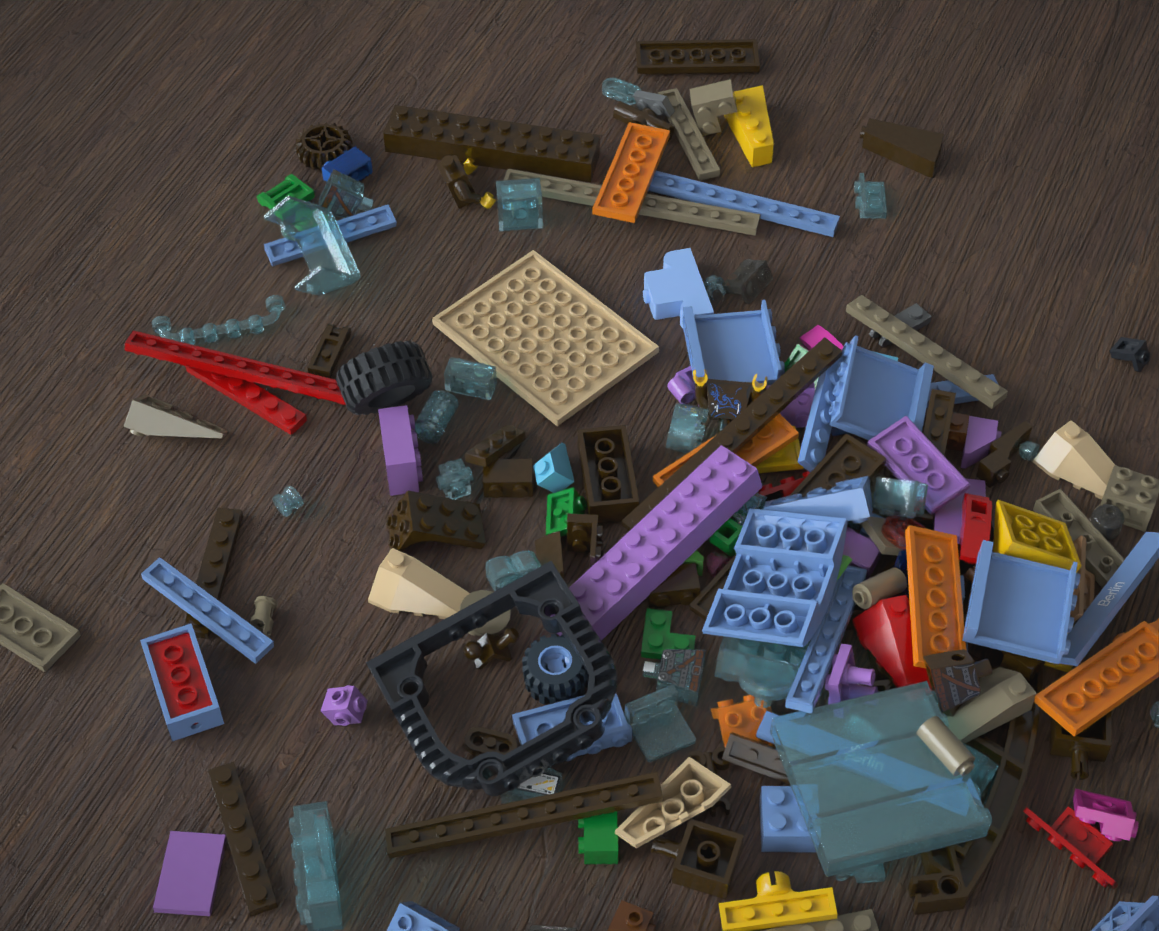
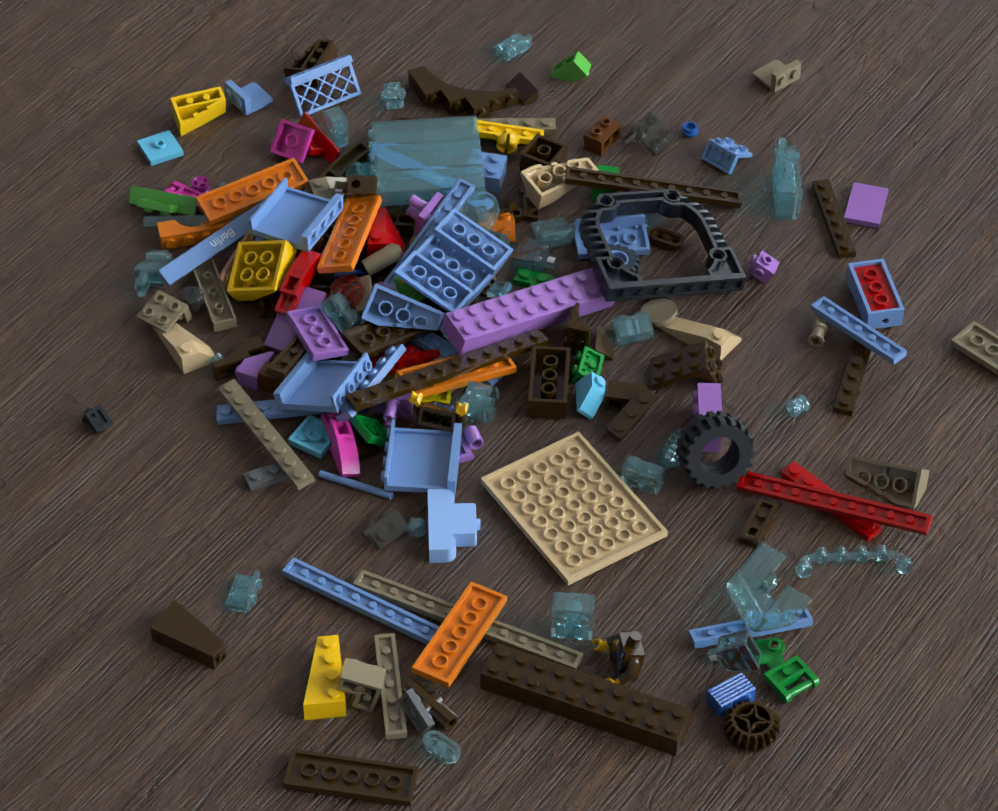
camera: 170 degrees left, 5 degrees down
(454, 479) = (668, 399): clear light blue brick -> none
(705, 590) = (499, 289): none -> clear light blue tile
(802, 329) = (355, 484): none -> medium blue bar
(946, 746) = (383, 150): dark tan brick -> none
(1049, 852) = (336, 126): none -> clear light blue brick

